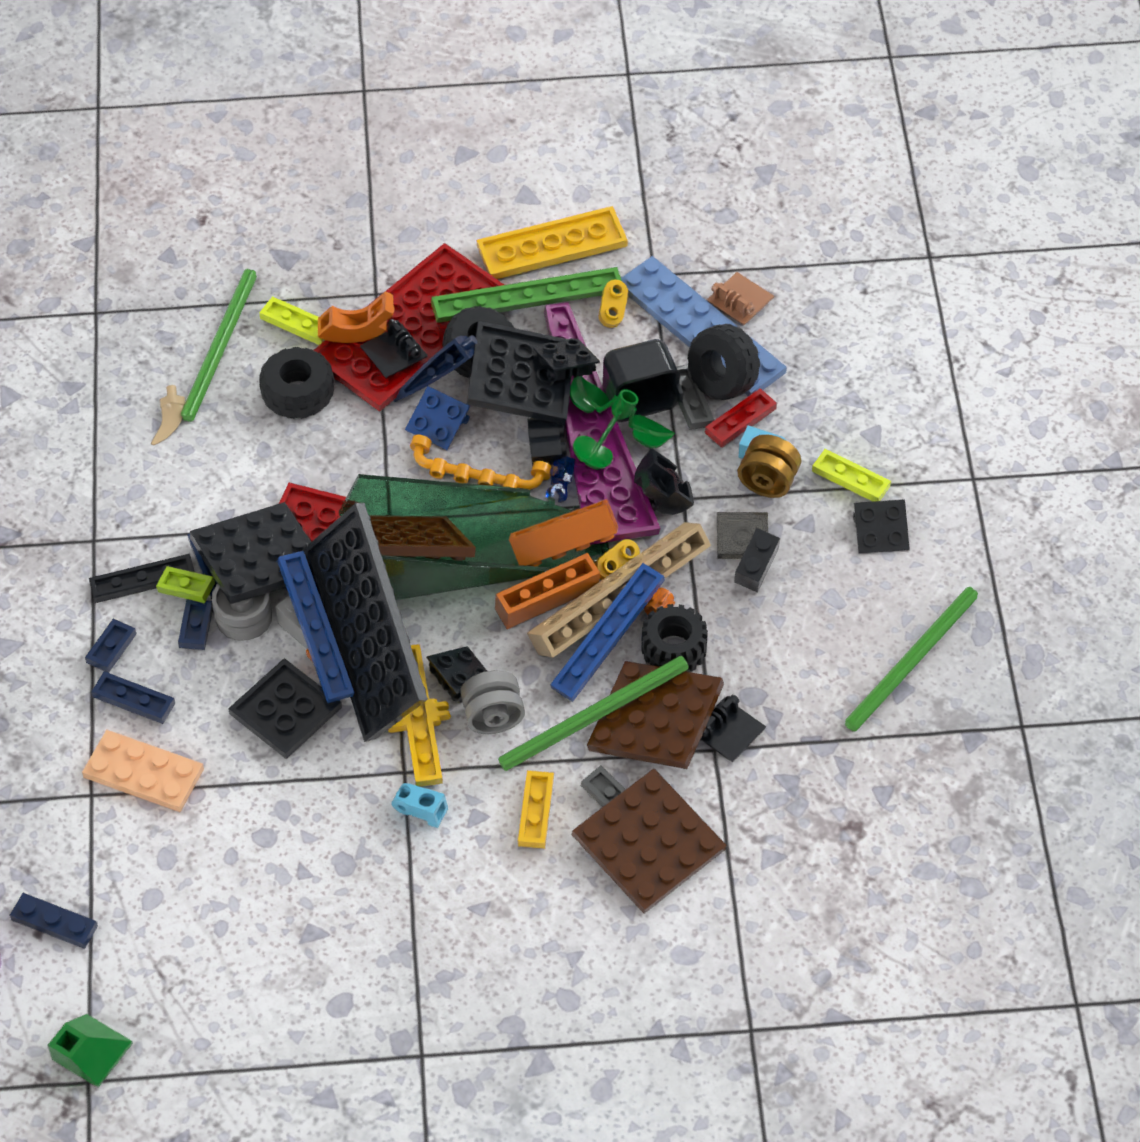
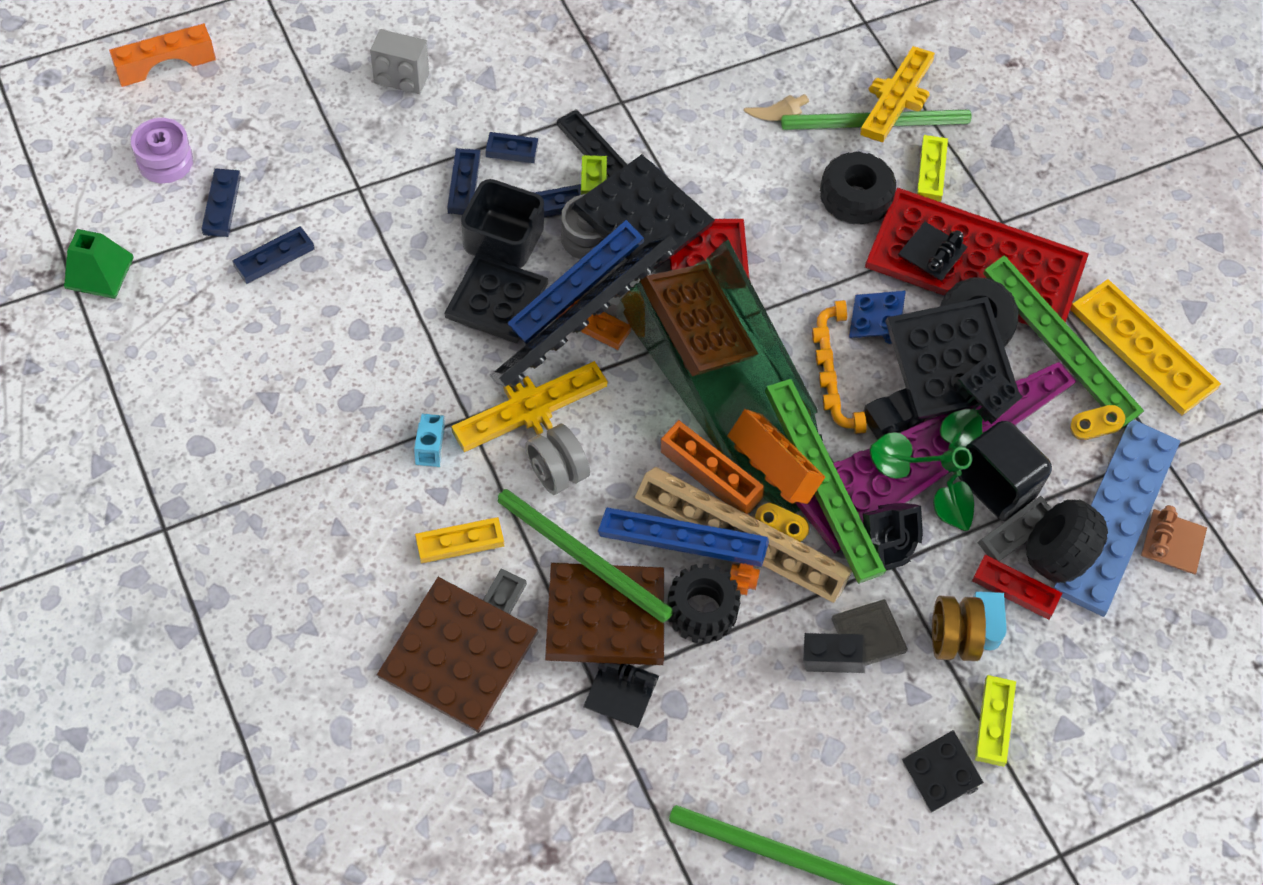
camera: 65 degrees right, 5 degrees up
(143, 770) = (393, 215): light nougat plate -> none
(146, 886) = (273, 254): none -> dark blue plate
(205, 313) = (897, 94): none -> yellow hinge
(212, 670) = (502, 222): none -> black piece
(356, 325) = (943, 207): orange arch -> none
(439, 365) = (928, 286): dark blue piece -> none
(454, 669) = (595, 425): black hinge -> none
(561, 475) = (861, 438): clear blue plate -> none
(624, 507) = (831, 493): none -> bright green plate

